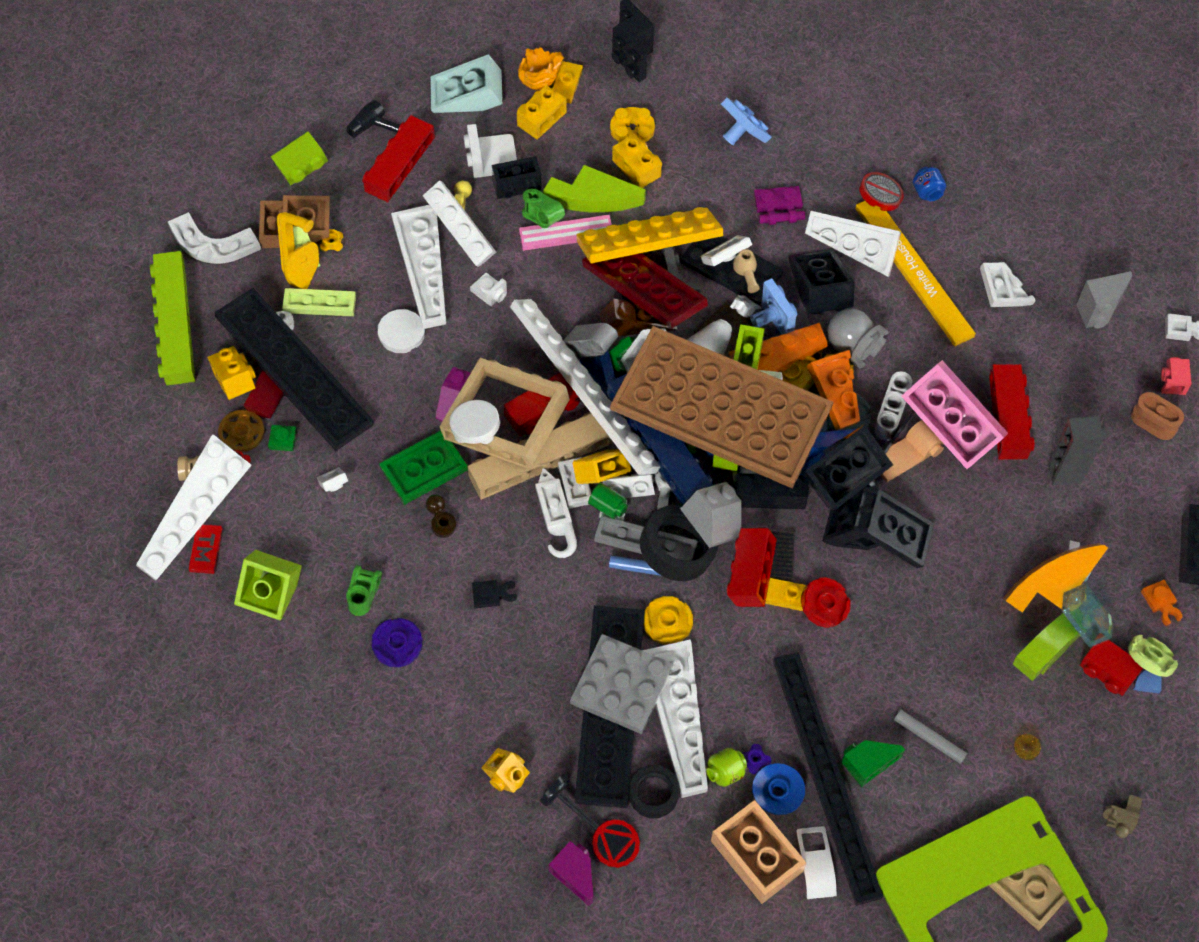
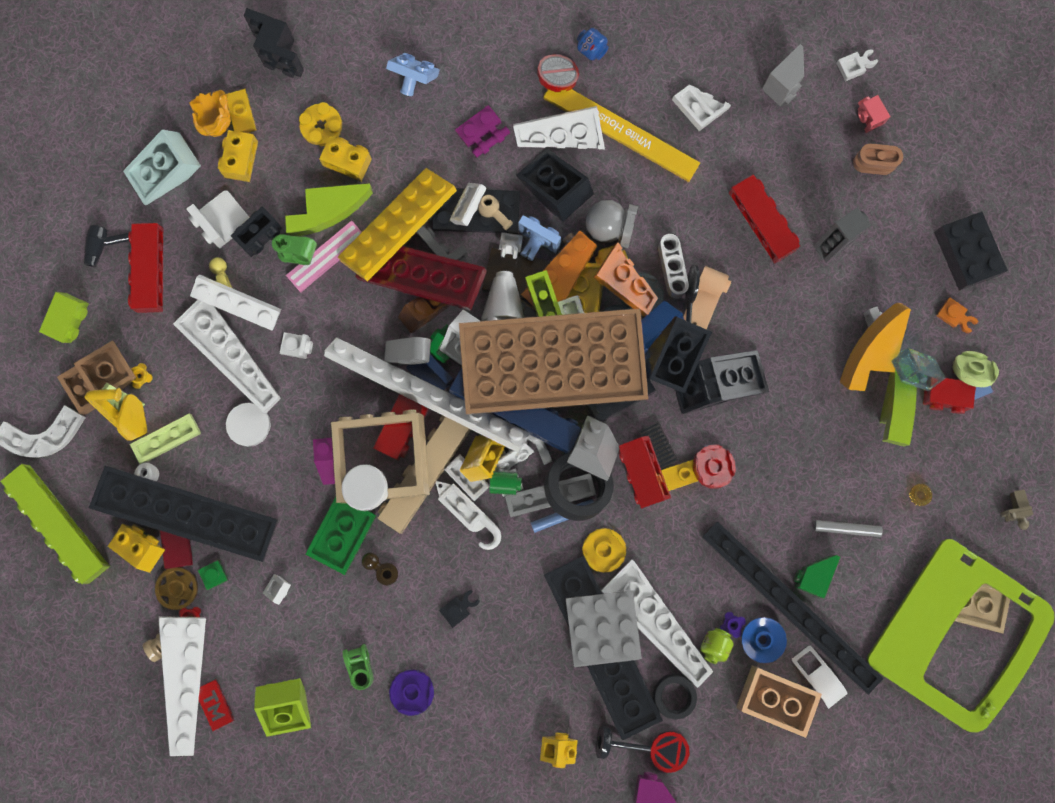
camera: 30 degrees left, 20 degrees up
(954, 414) = (730, 253): bright pink brick -> none

